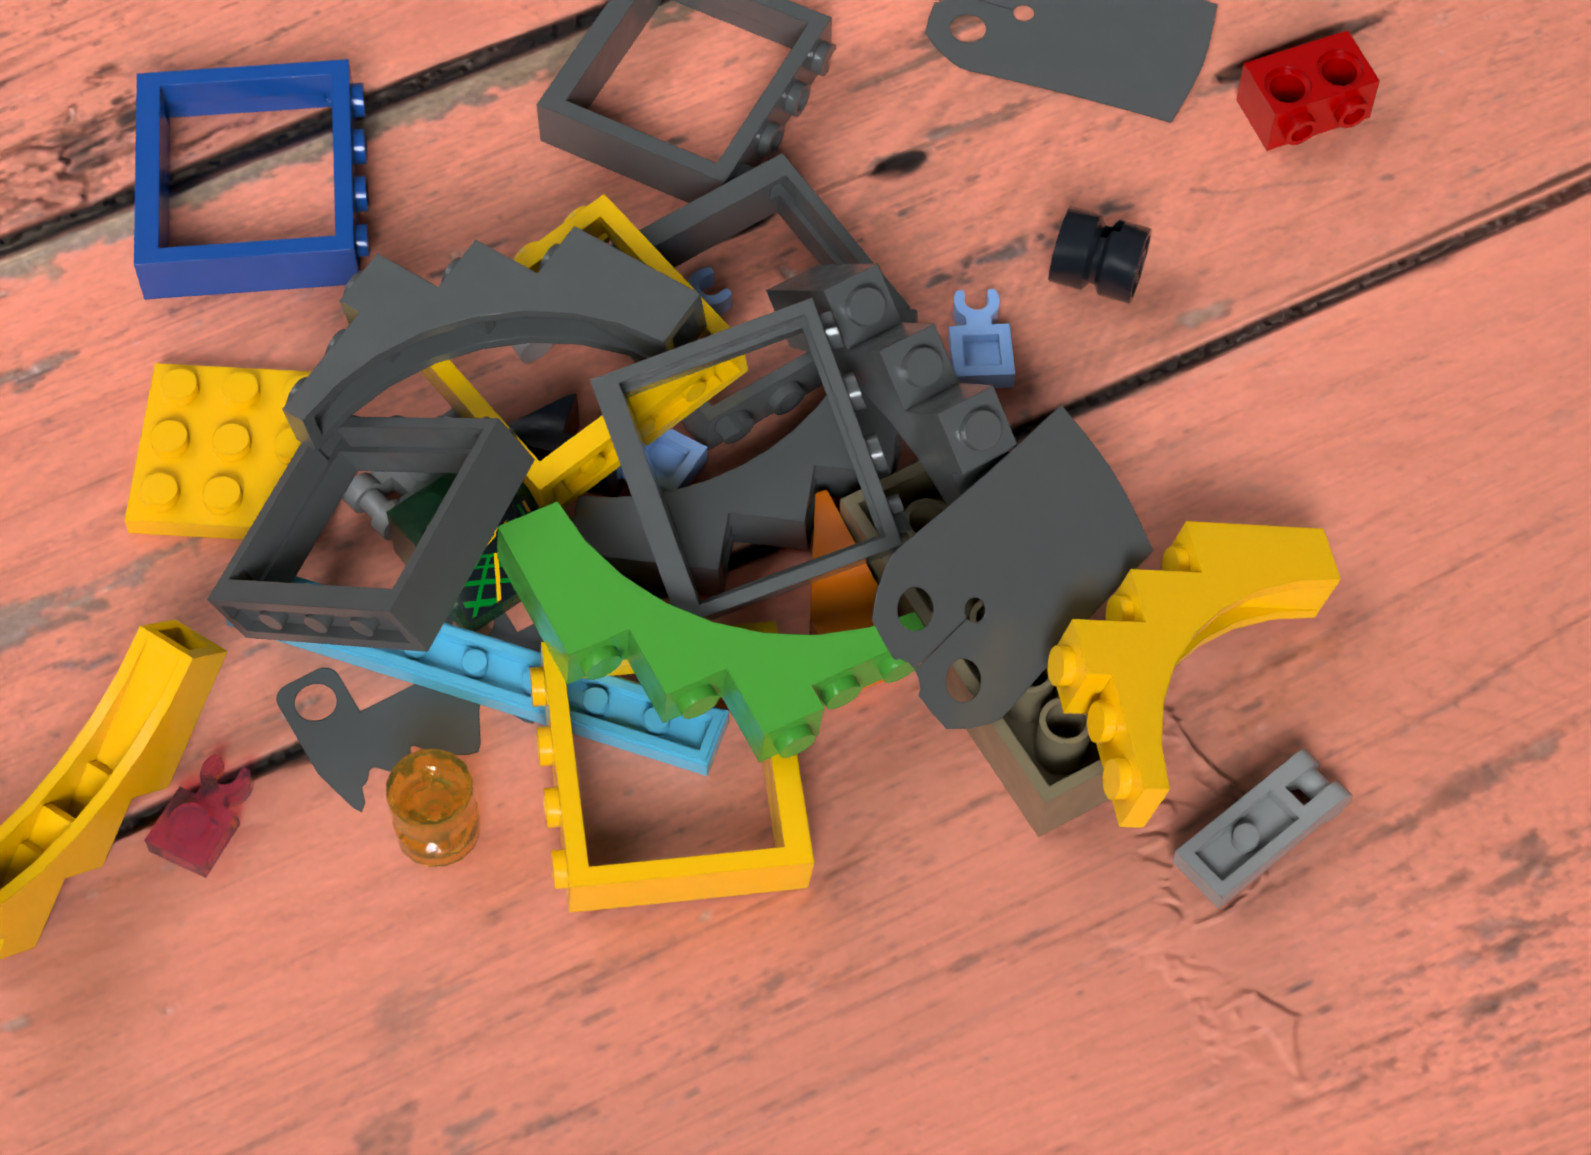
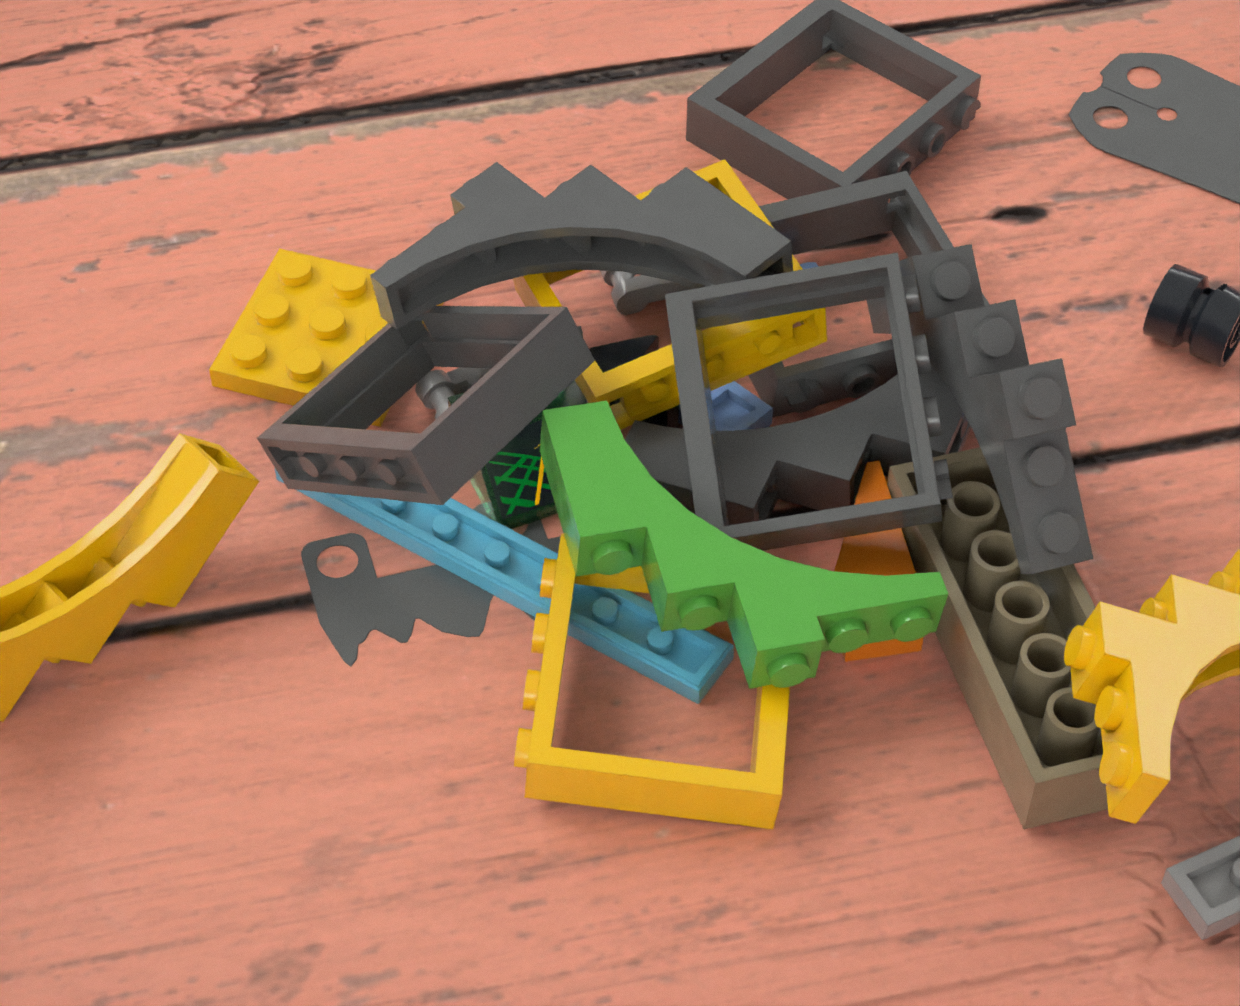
camera: 15 degrees right, 10 degrees down
(200, 825) = (193, 643): clear pink plate -> none
(253, 264) = (393, 185): blue window -> none
(433, 807) = (417, 668): clear yellow wheel -> none
(978, 346) = (1077, 366): light blue plate -> none
(1037, 545) = (1075, 525): dark grey piece -> none

